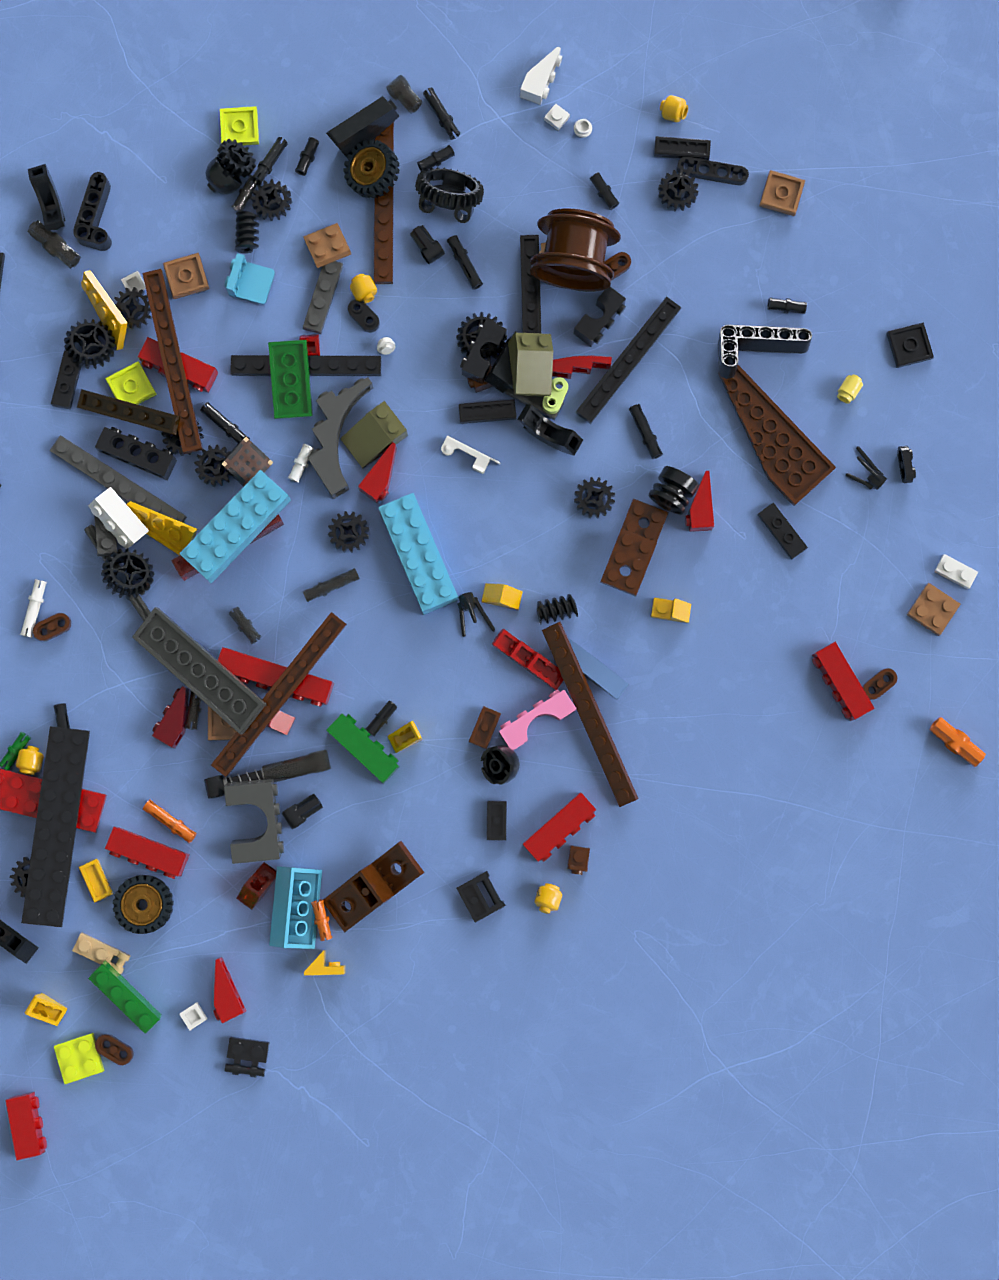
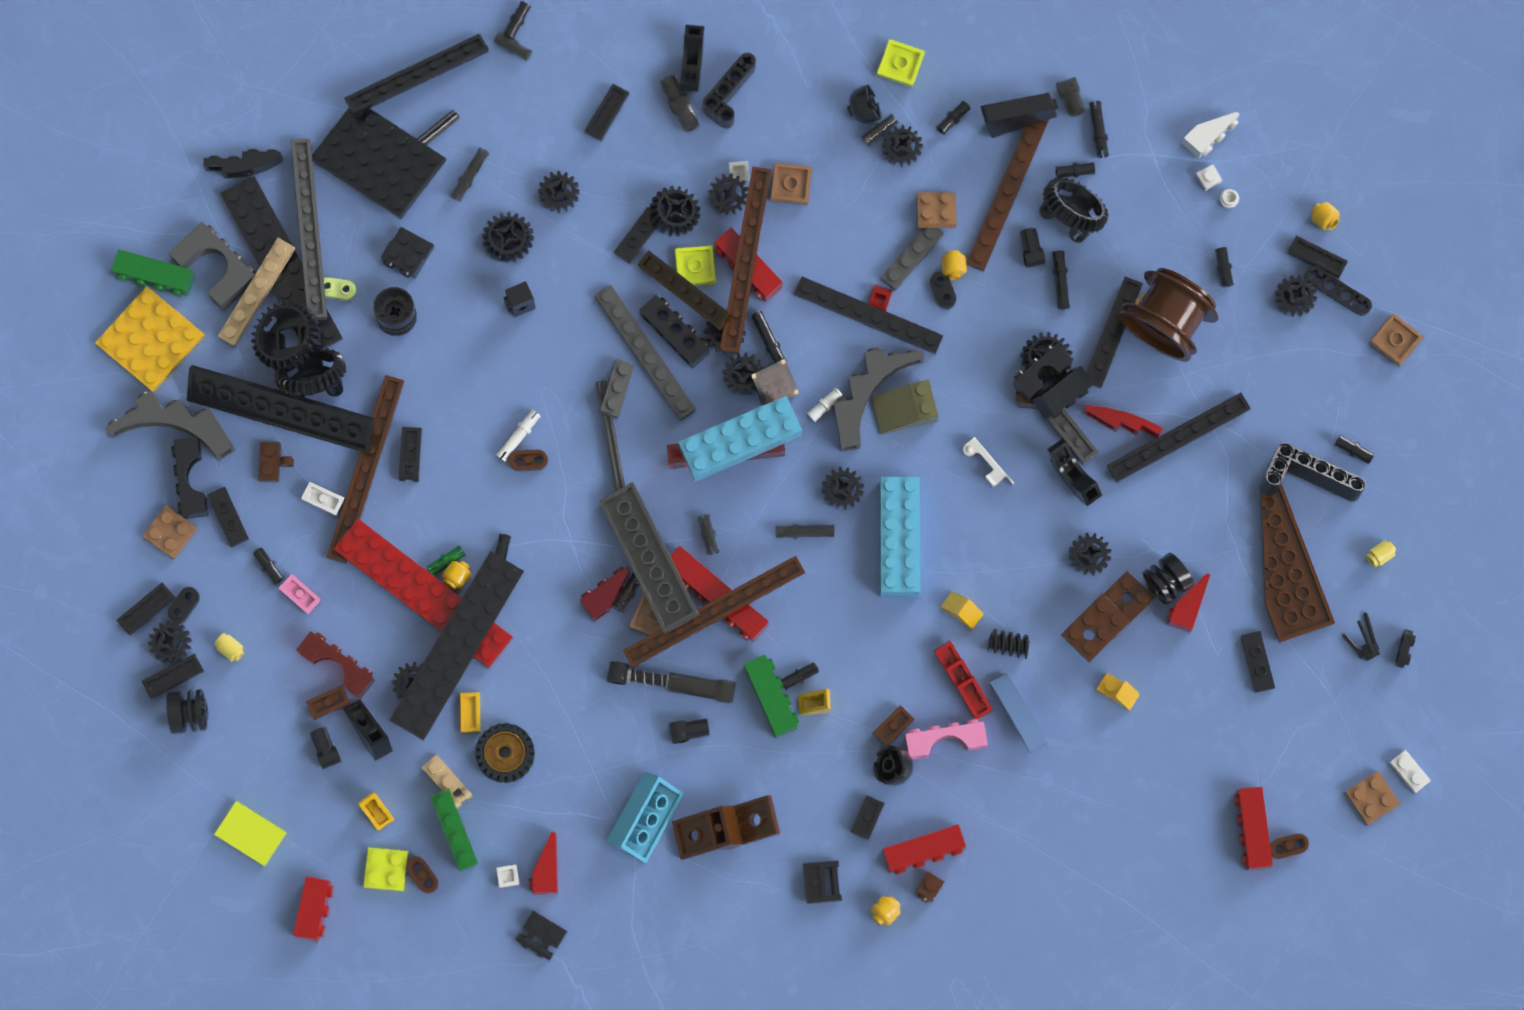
camera: 25 degrees right, 5 degrees down
(105, 308) = (702, 183): yellow wing -> none
(118, 518) = (633, 385): white brick -> none
(141, 571) = (610, 441): black gear -> none
(147, 852) = (530, 706): red brick -> none
(164, 529) = (669, 411): yellow wing -> none
(176, 826) = (562, 688): orange pin -> none
(236, 158) = (885, 93): black gear -> none
(246, 232) = (864, 166): black piece -> none
(249, 280) = (848, 213): medium azure bracket -> none
(257, 886) = (617, 781): clear red slope -> none
(261, 794) = (659, 698): dark grey arch -> none
(265, 166) = (909, 112): black pin -> none
(282, 722) = (704, 640): slope -> none
(290, 379) = (848, 322): green plate -> none
(319, 967) = (643, 882): yellow slope -> none
(321, 920) = (664, 839): orange pin -> none
(372, 156) = (1016, 166): wheel -> none
(378, 479) = (889, 453): red slope -> none
(385, 346) = (952, 328): white plate -> none
(468, 603) = (927, 603): black plant -> none
(487, 411) = (1022, 430): black plate -> none
(531, 363) = (1082, 403): slope -> none
(557, 395) = (1094, 441): yellowish green plate -> none
(590, 714) = (998, 755): reddish brown plate -> none
(591, 329) = (1154, 394): black arch -> none
(616, 268) = (1202, 345): reddish brown plate -> none
(643, 426) = (1166, 519): black pin -> none
(910, 345) = (1459, 536): black tile -> none
(957, 742) = (1340, 933): orange piece -> none

